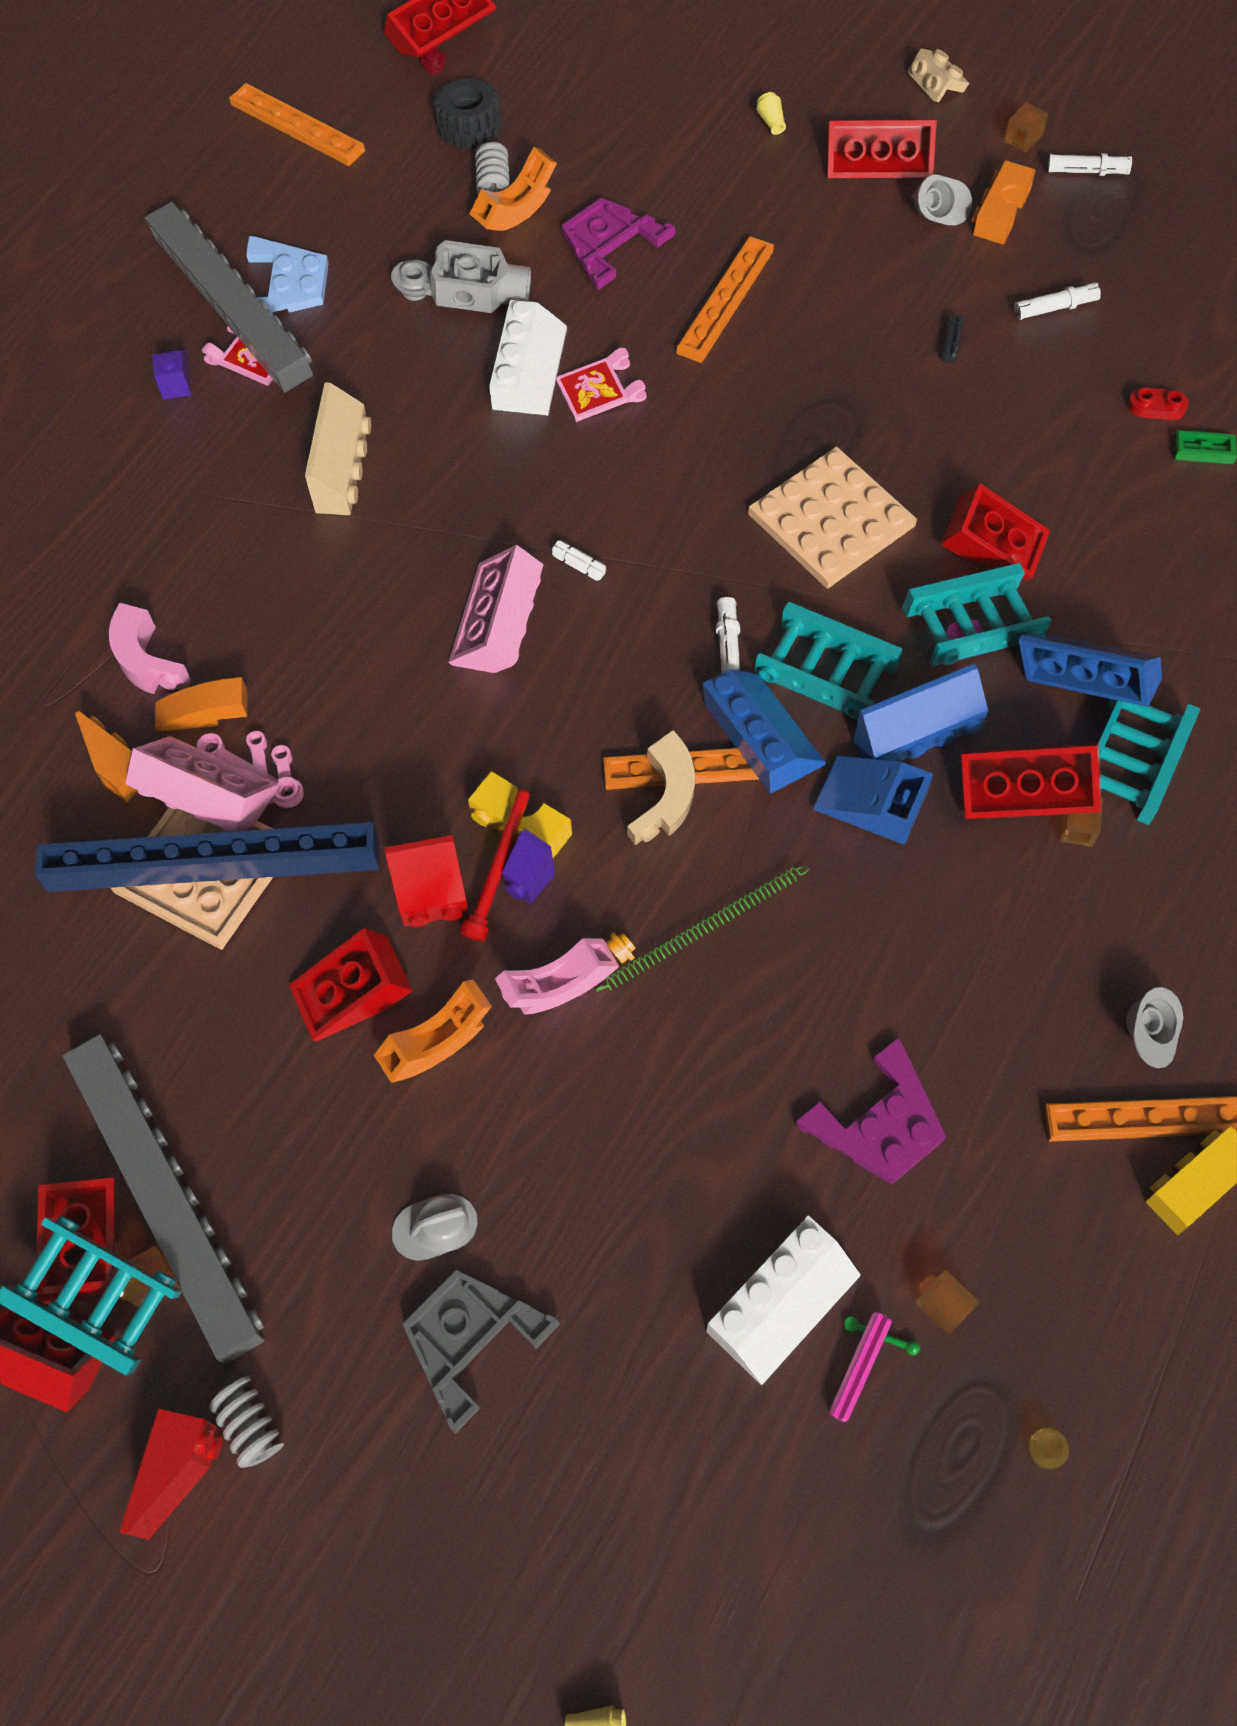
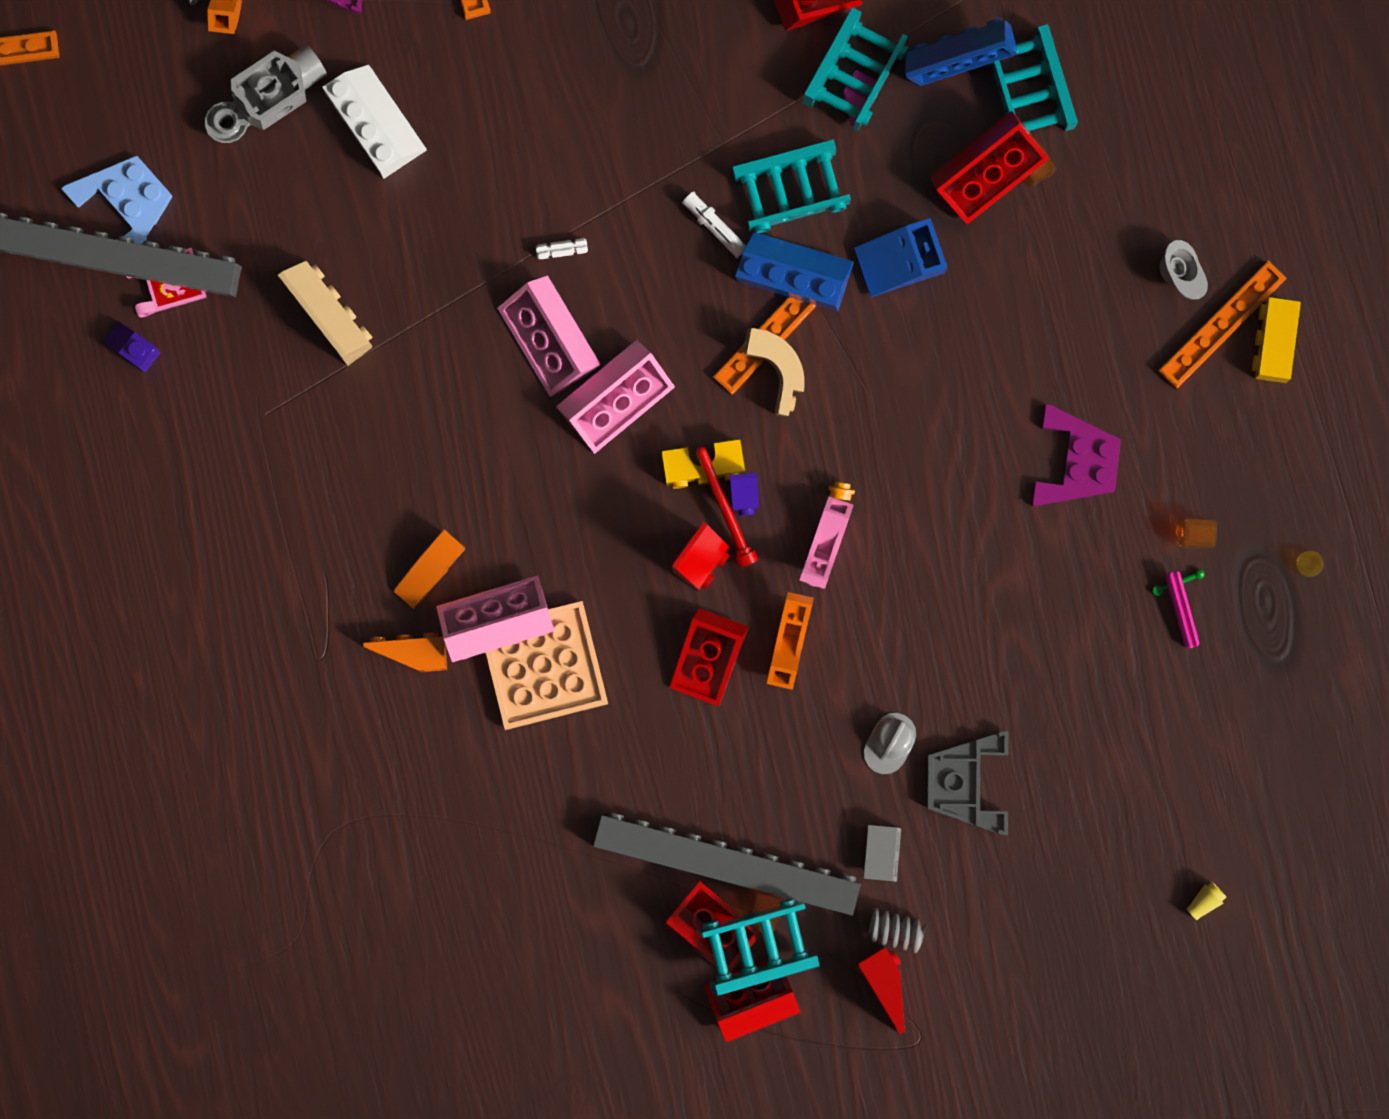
camera: 45 degrees left, 20 degrees up
(128, 639) = (331, 567): bright pink arch -> none
(207, 857) = (554, 659): dark blue brick -> none
(259, 766) = (508, 574): bright pink plant -> none
(314, 1328) = (882, 853): none -> light grey hinge
(500, 703) = (615, 396): none -> bright pink slope
(598, 387) = (439, 101): flag -> none
(778, 886) = (867, 462): bright green piece -> none
(783, 1300) = (1112, 610): white slope -> none
(832, 517) = (694, 67): light nougat plate -> none
(922, 717) = (888, 182): slope -> none

